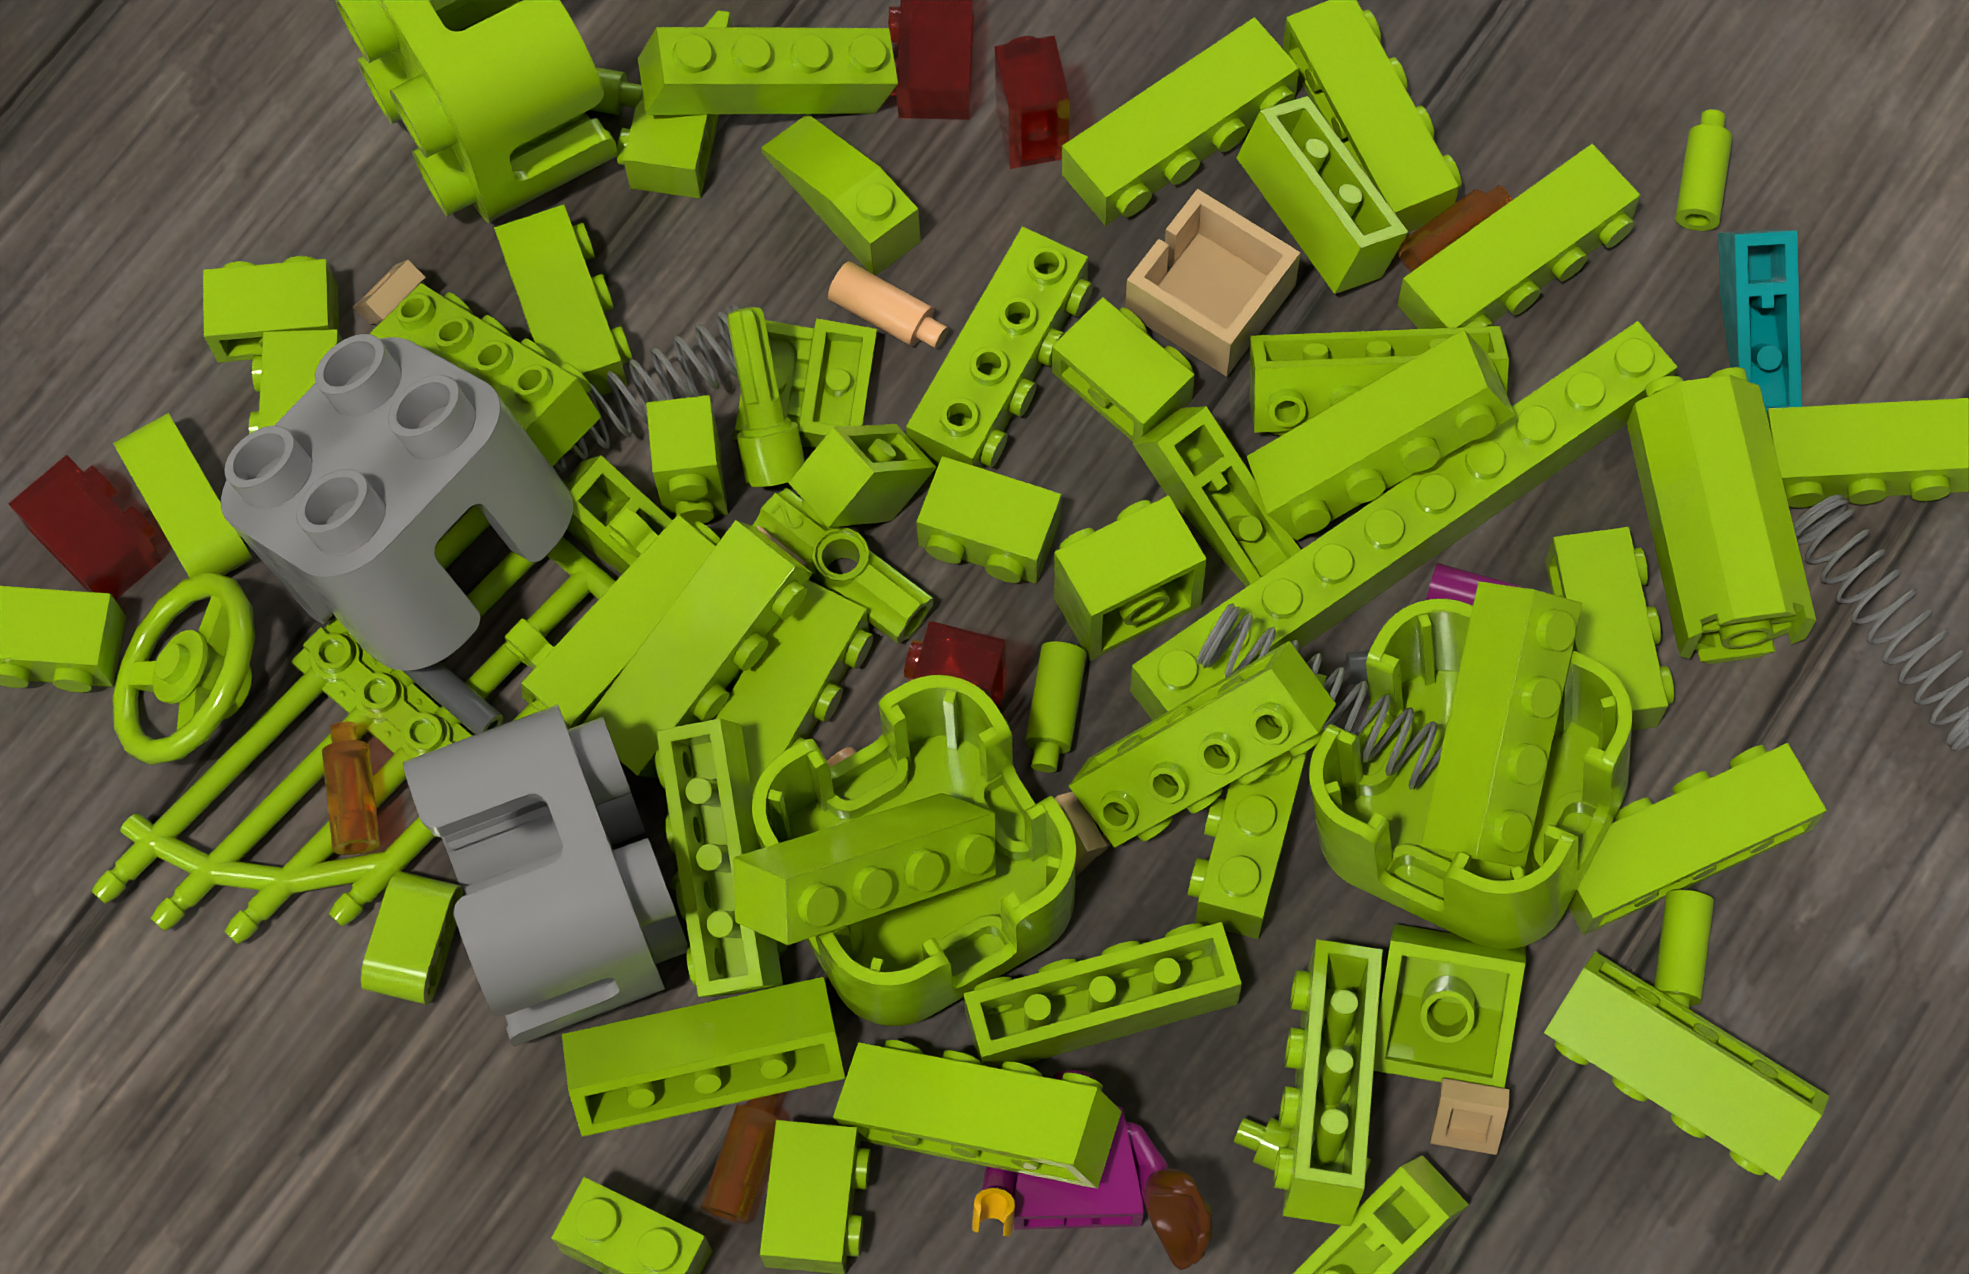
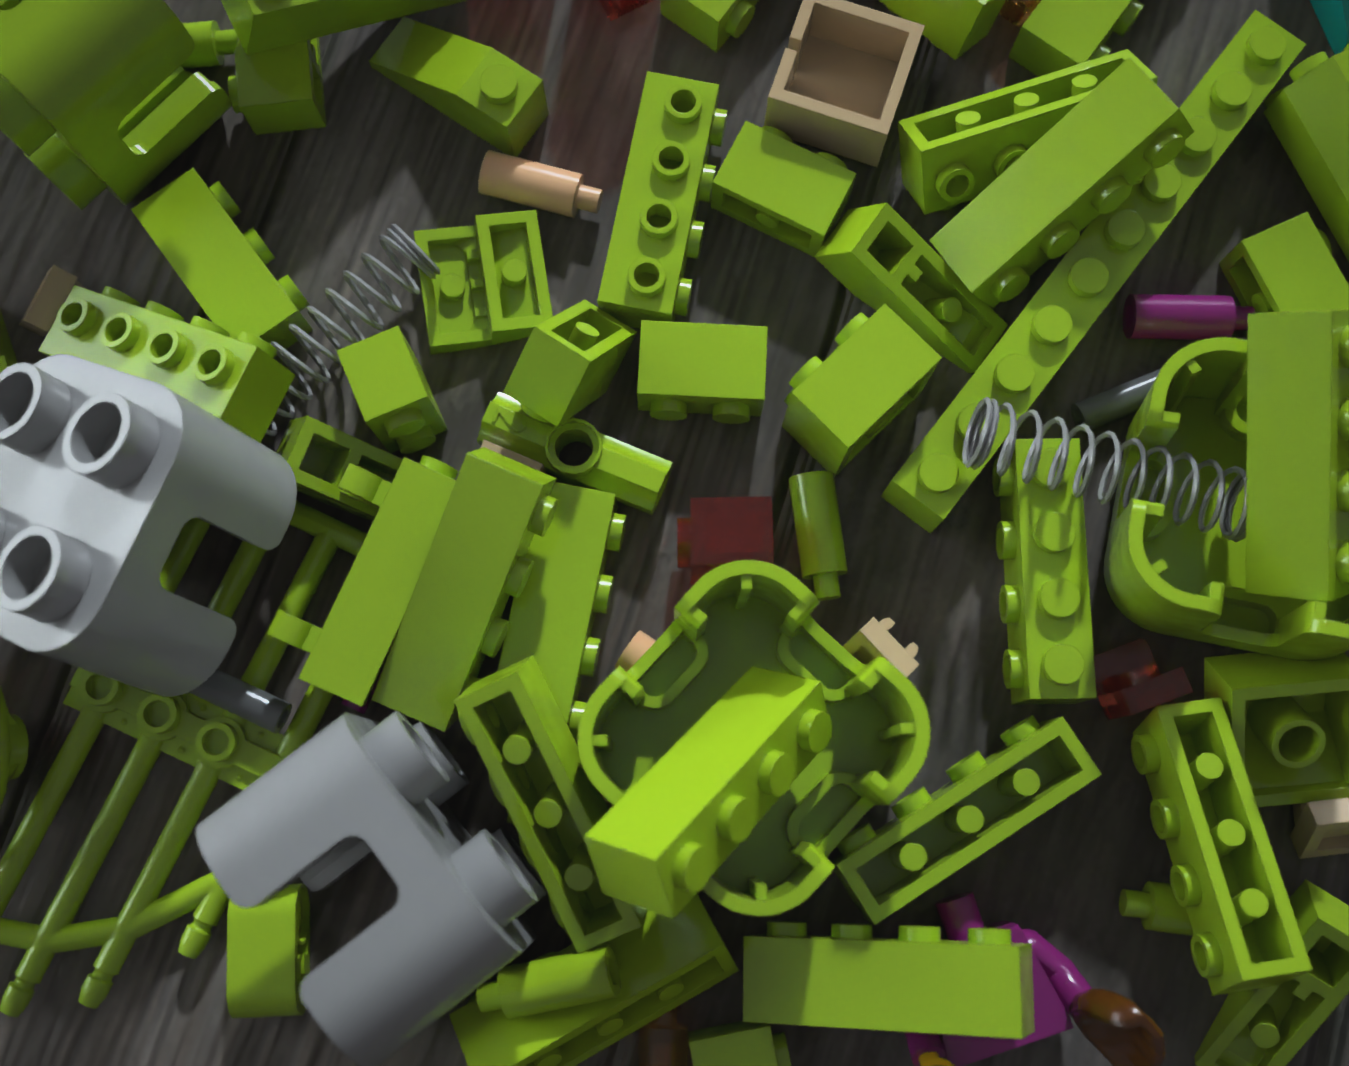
camera: 20 degrees left, 10 degrees up
(350, 792) = (159, 827): clear orange cylinder -> none
(666, 1020) = (552, 983): none -> lime cylinder
(769, 441) = (466, 348): lime piece -> none
(1203, 746) = (1000, 545): lime brick -> none
(1311, 917) = (1131, 680): none -> clear red bracket

